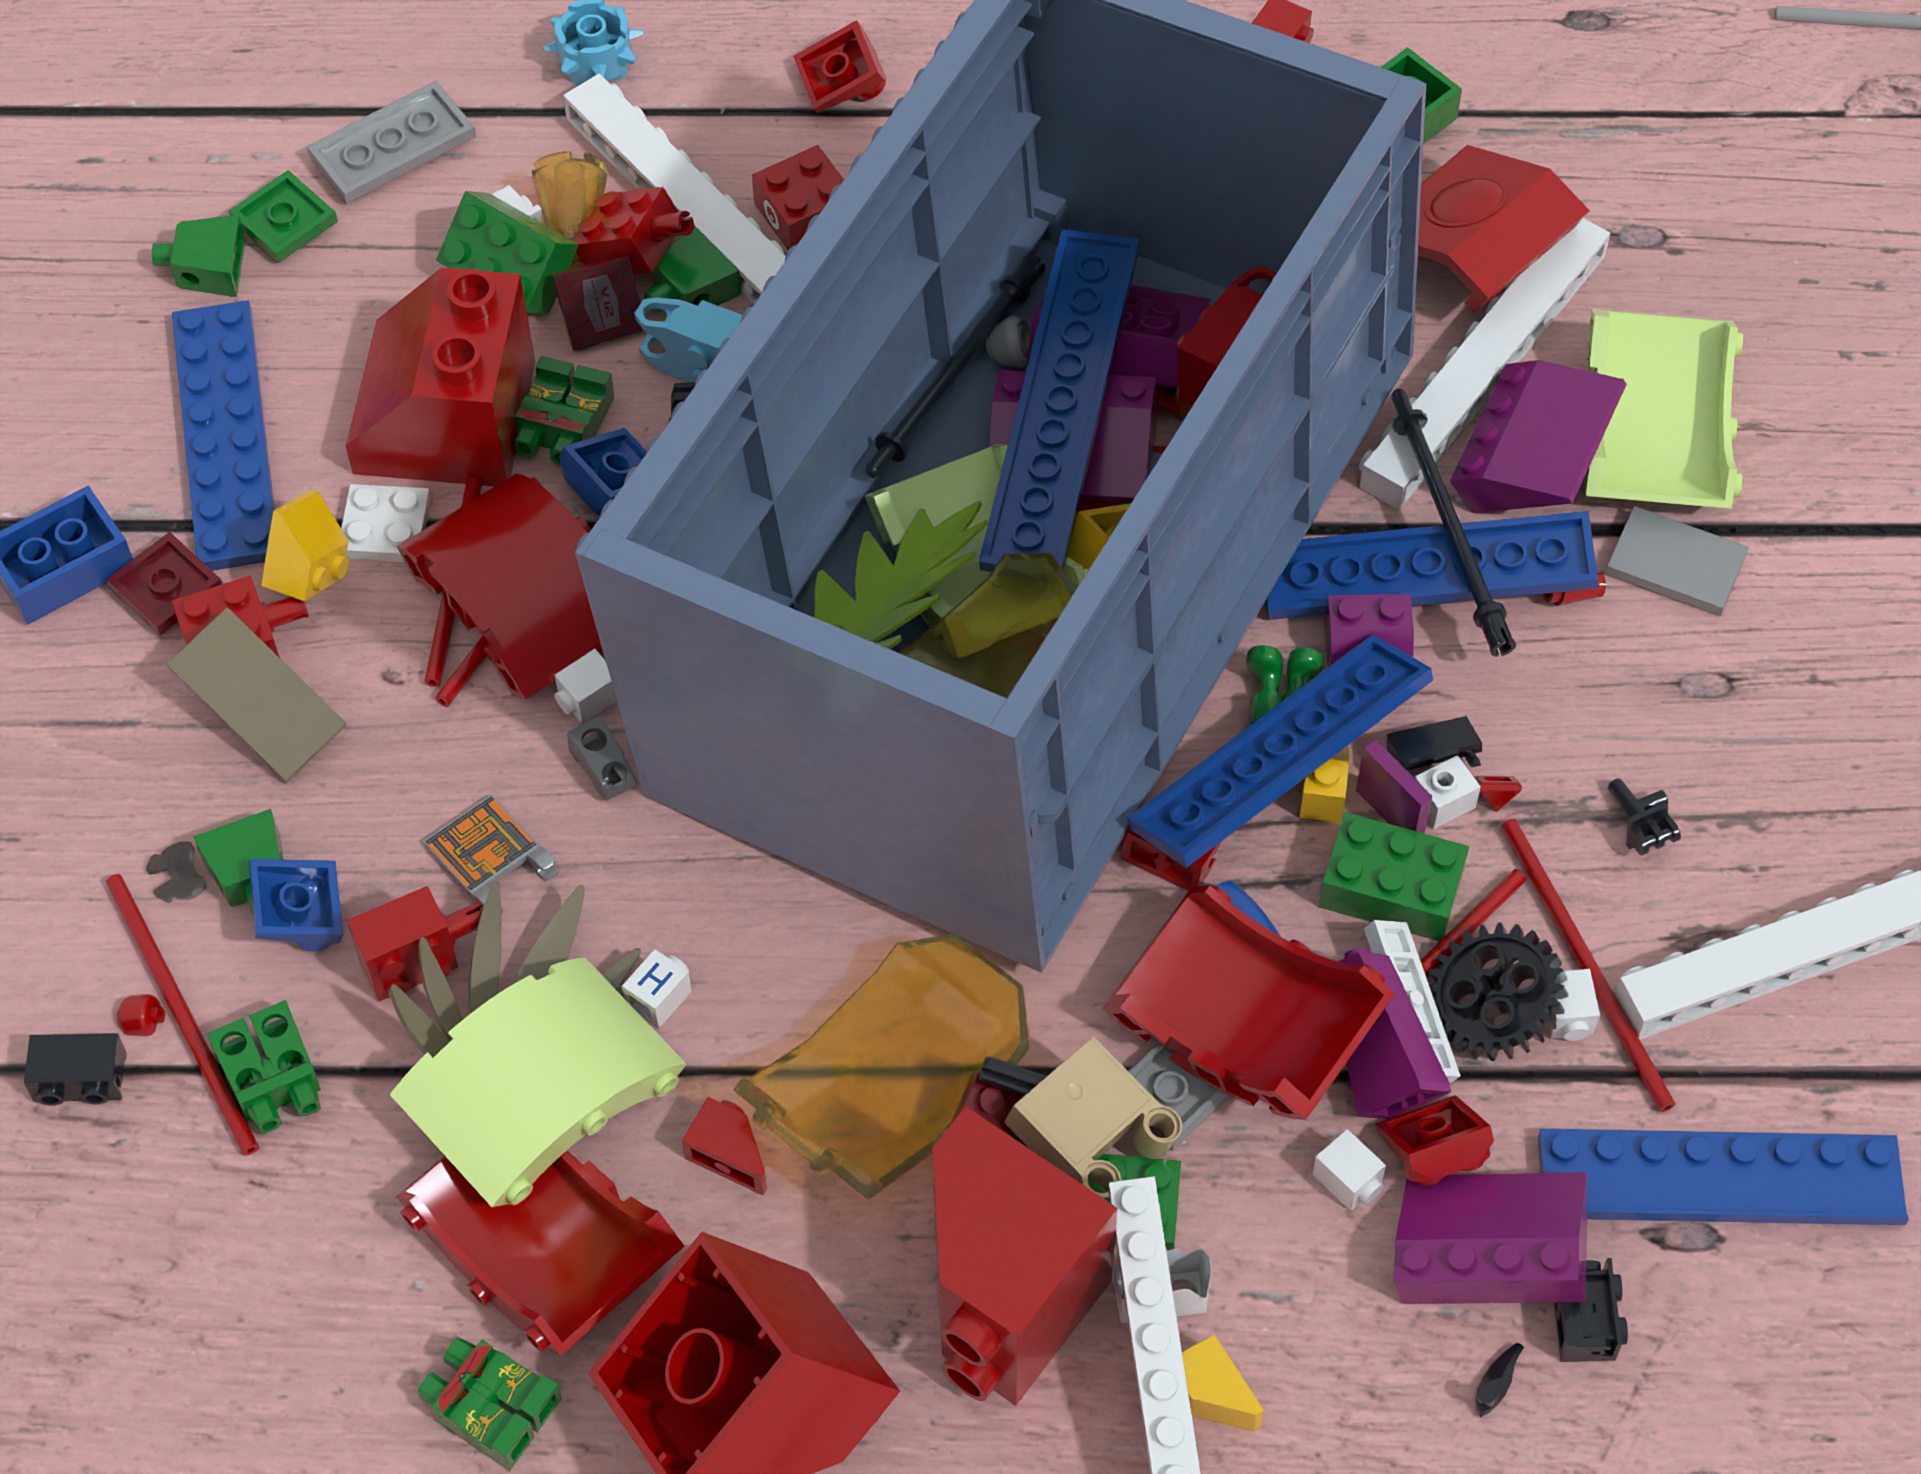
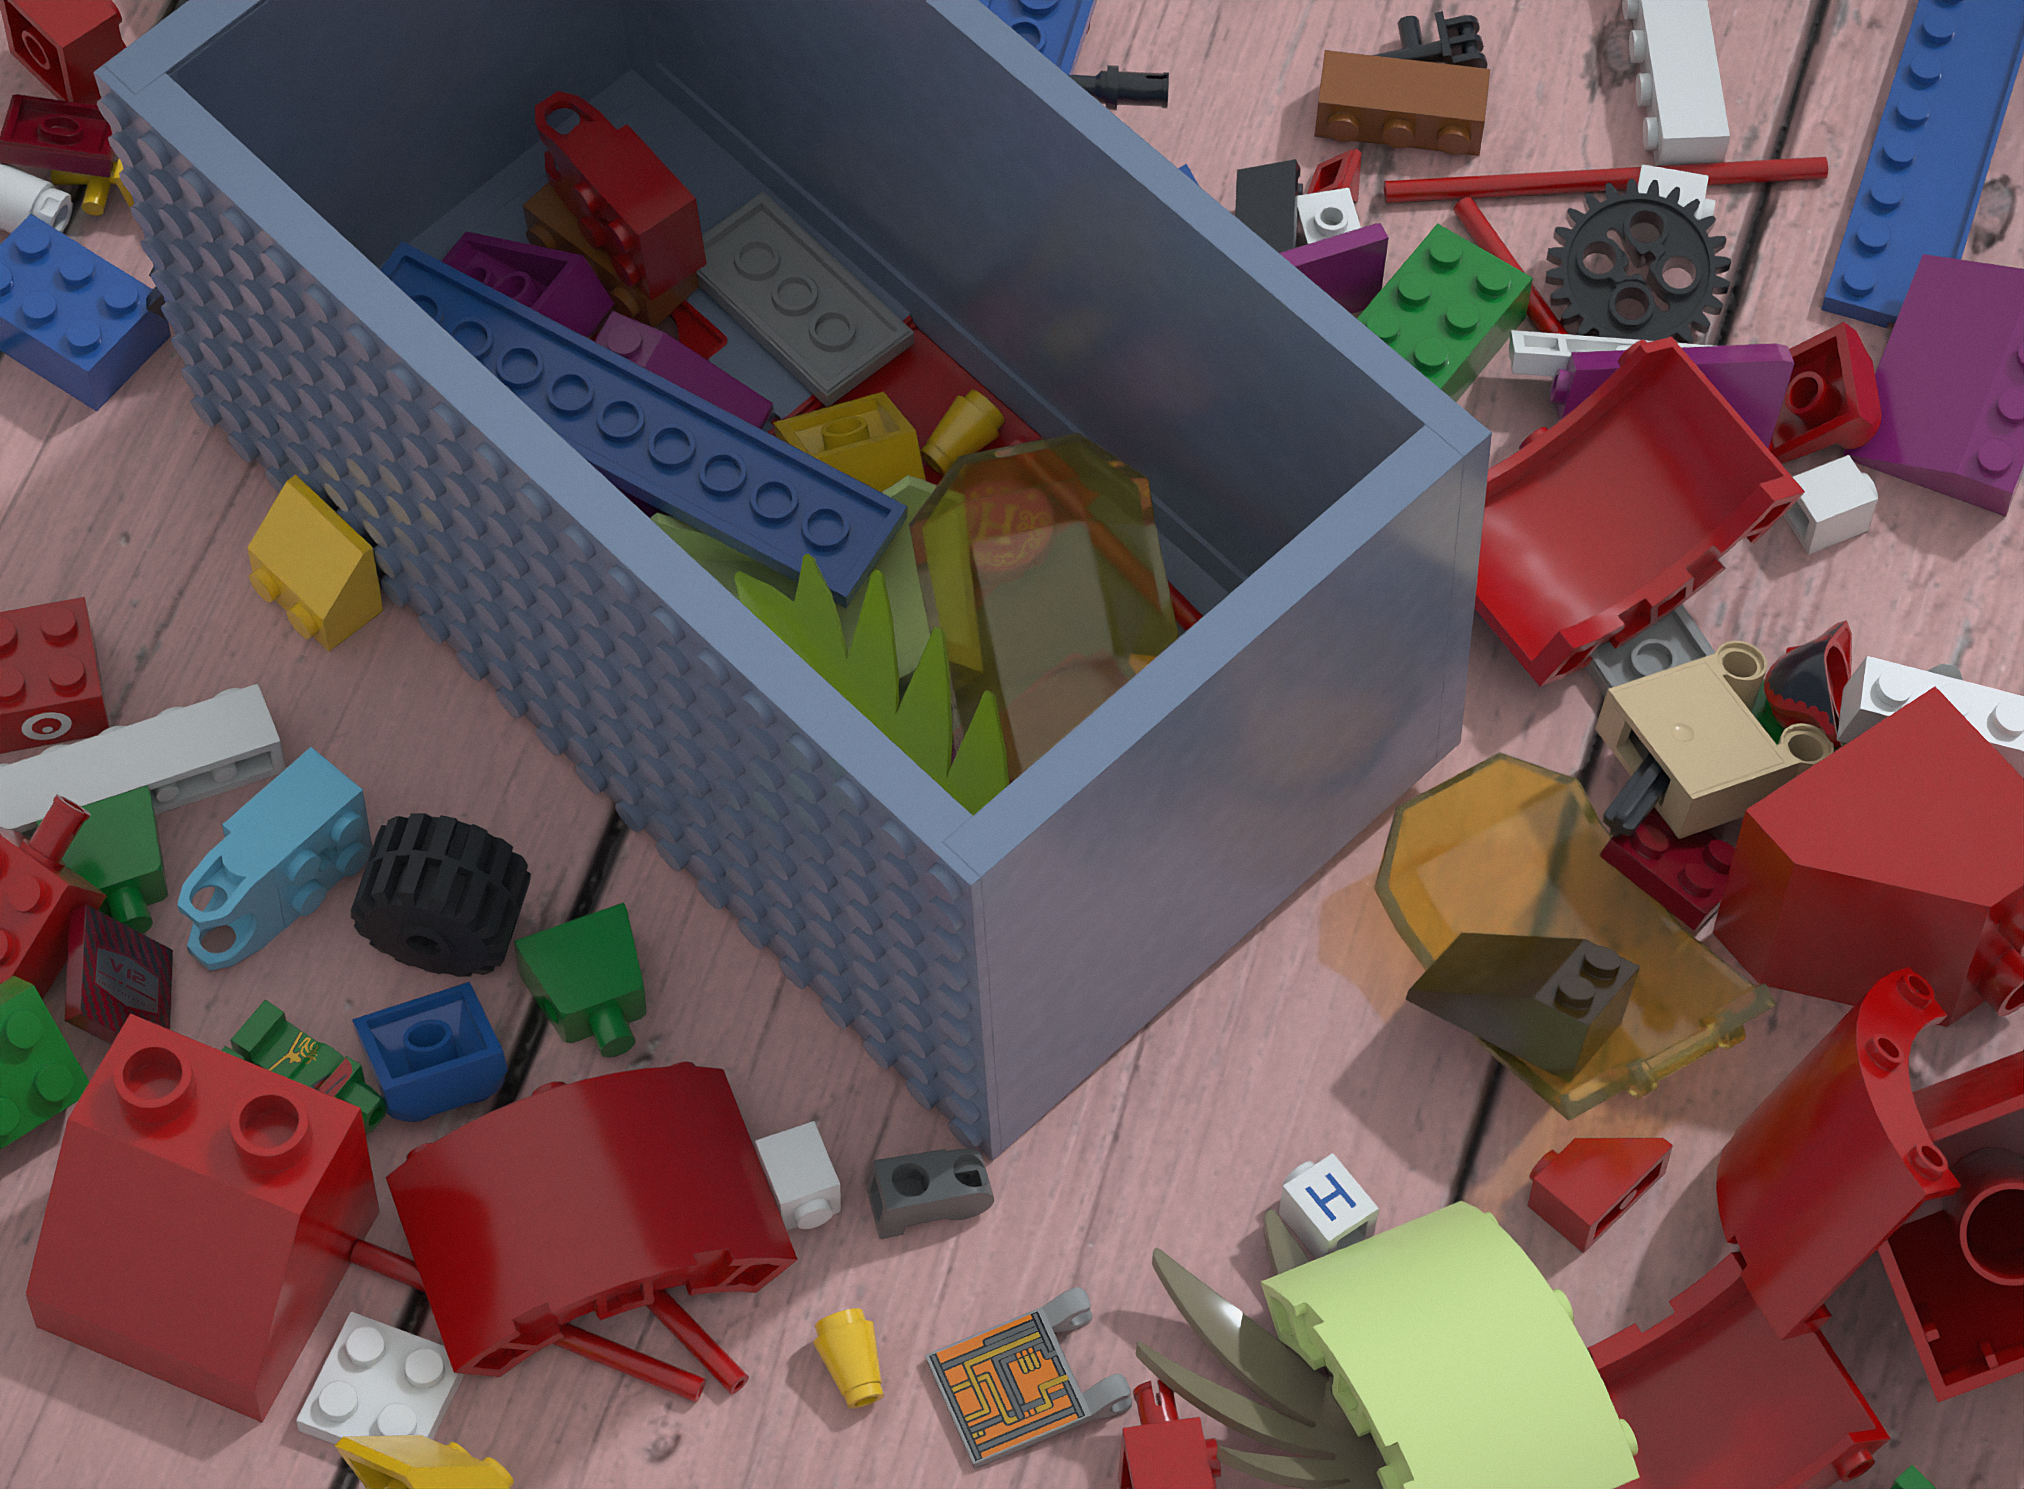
camera: 75 degrees left, 0 degrees up
(473, 751) = (851, 1356): none -> yellow cone
(707, 1236) = (1833, 1159): none -> red panel
(833, 1051) = (1530, 995): none -> dark brown slope
(1179, 1182) = (1810, 681): none -> hat
(1584, 810) = (1402, 103): none -> dark orange brick

